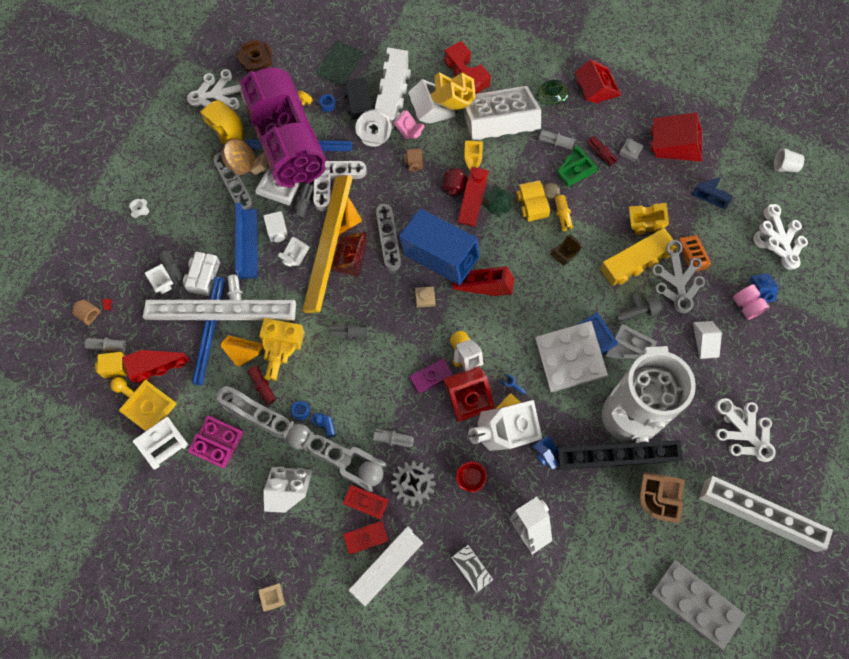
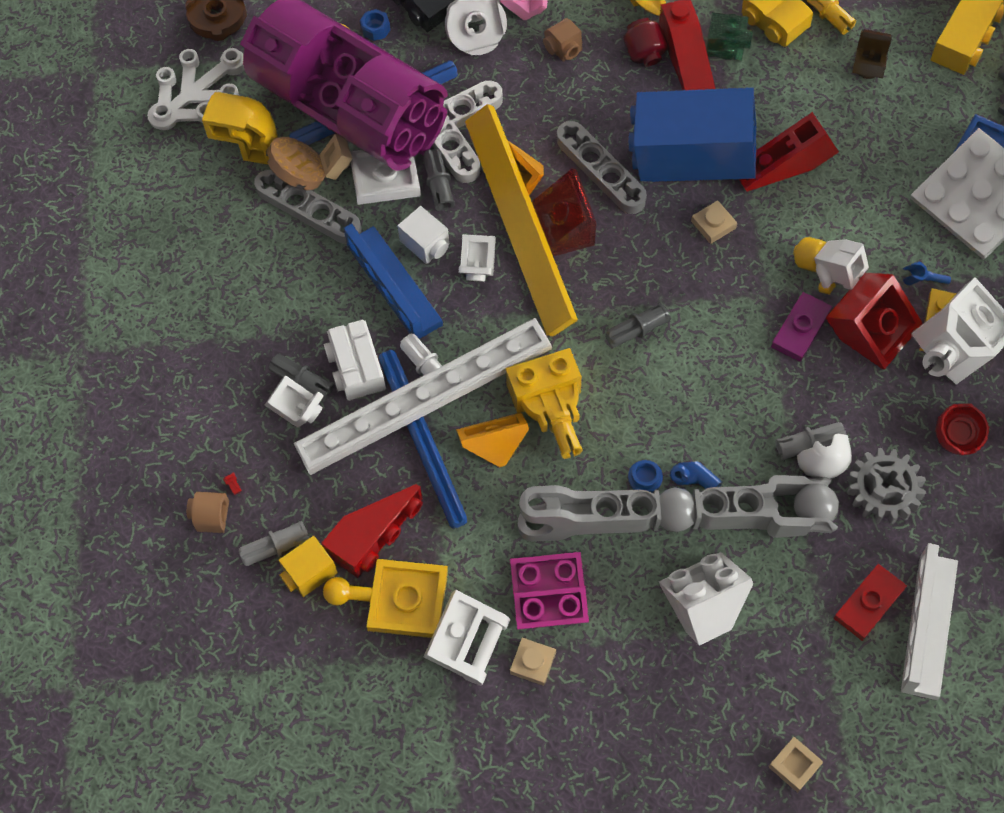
camera: 25 degrees left, 5 degrees down
(135, 204) = (180, 310): white plate -> none
(185, 472) = (533, 661): none -> tan plate
(261, 385) = (561, 471): dark red pin -> none
(366, 502) = (836, 550): red plate -> none
(391, 455) = (828, 460): none -> white hair

